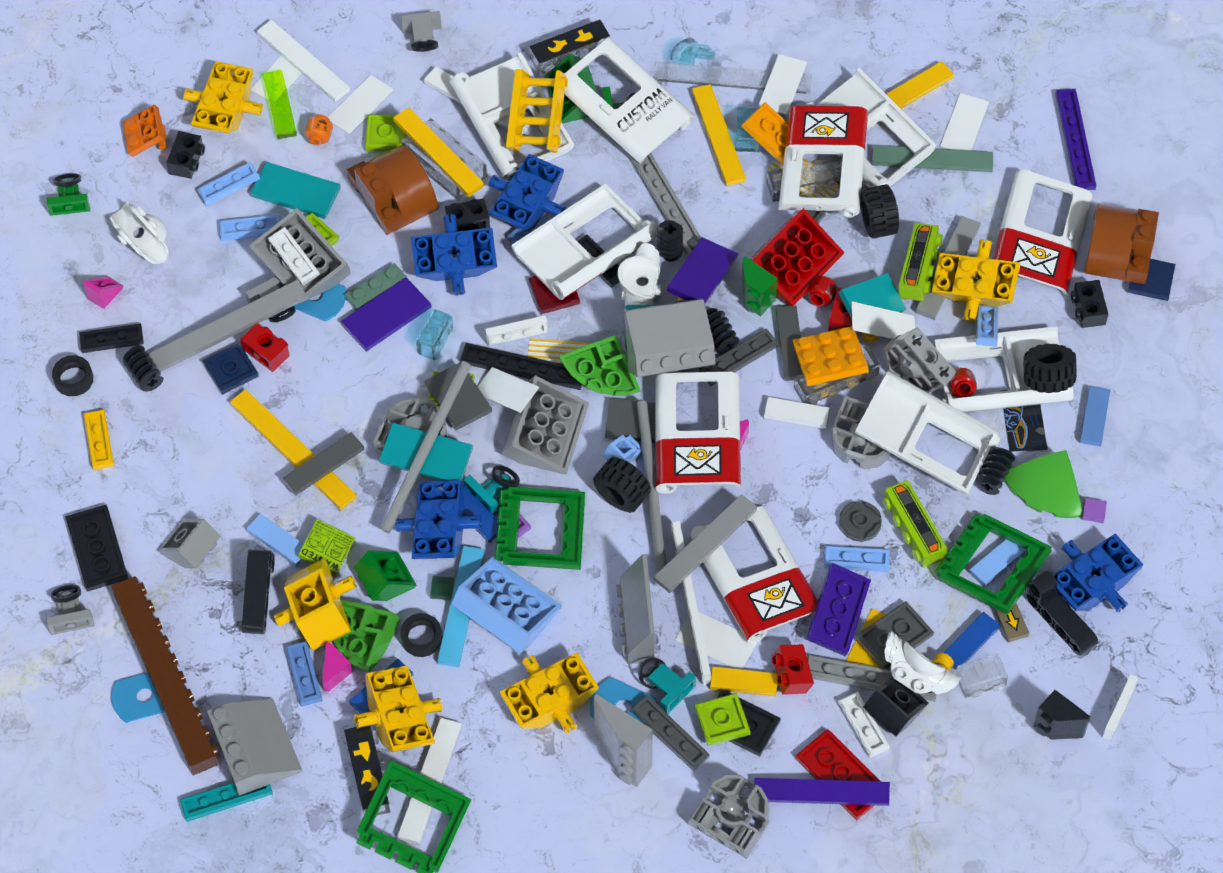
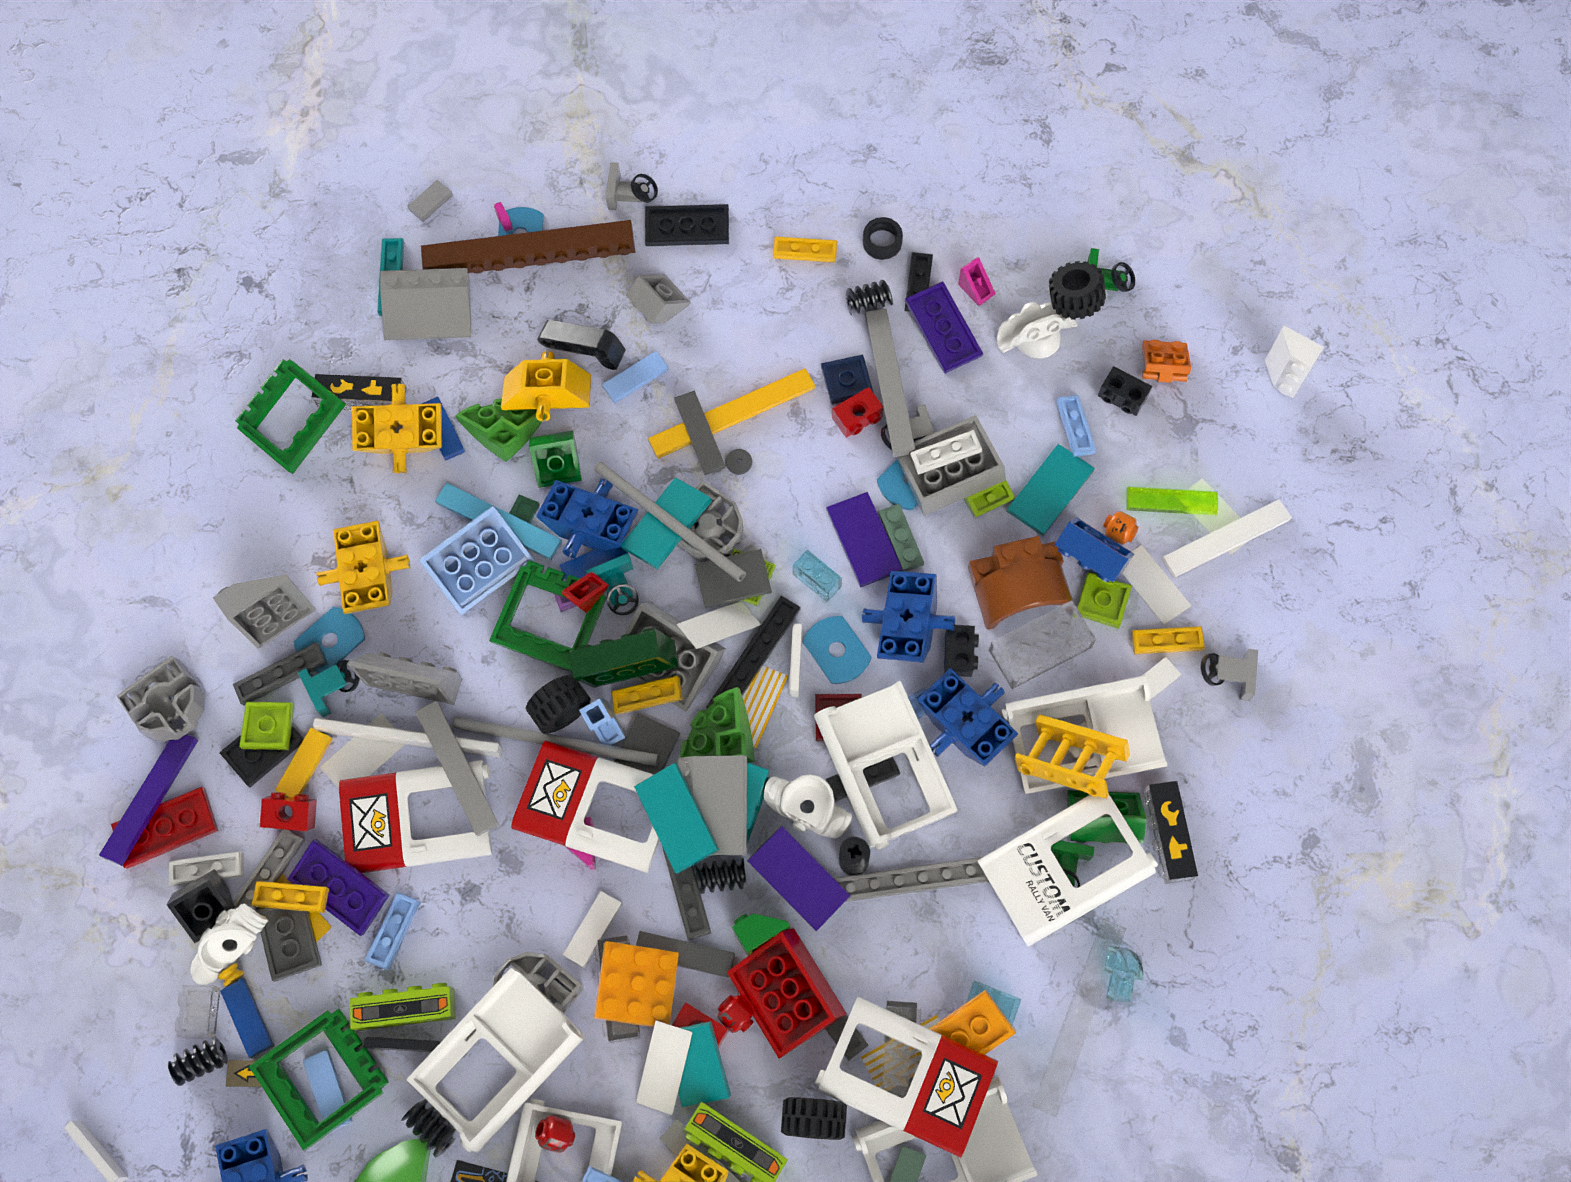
camera: 110 degrees right, 10 degrees up
(92, 185) = (1077, 290): none -> black tyre
(127, 791) = (430, 200): none -> light grey tile
(131, 34) = (1291, 360): none -> white slope
(133, 707) = (503, 216): none -> dark pink tile
(156, 304) = (943, 327): none -> dark purple tile
(224, 98) = (1184, 440): yellow slope -> none
(247, 227) = (1015, 436): light blue tile -> none
(304, 673) = (483, 366): medium blue tile -> none
(326, 543) = (607, 415): lime tile -> none
(335, 426) = (741, 468): none -> dark grey wheel
(335, 667) = (478, 390): dark pink slope -> none
(349, 138) = (1093, 550): none -> blue brick
(407, 83) = (1168, 640): none -> yellow tile
(425, 649) = (474, 460): black tyre -> none
(434, 769) = (333, 448): white tile -> none
(438, 152) = (1042, 632): yellow tile -> none
(499, 293) = (842, 668): none -> dark azure piece
(513, 494) = (586, 591): none -> red slope
(565, 442) = (624, 658): none -> dark green brick
(586, 430) = (646, 695): none -> yellow tile
(689, 357) = (676, 818): none -> teal tile
(718, 135) = (998, 969): yellow tile -> none
(783, 83) = (1049, 1073): white sticker -> none
(860, 521) = (435, 951): dark grey tile -> none
(862, 639) = (290, 896): none -> yellow tile
(927, 362) = (582, 1082): light grey connector -> none
(942, 512) = (400, 1044): none -> black tile
(1017, 658) = (197, 1063): none -> black piece
(1058, 614) = (204, 1137): black beam -> none
(1060, 718) = (103, 1074): black slope -> none

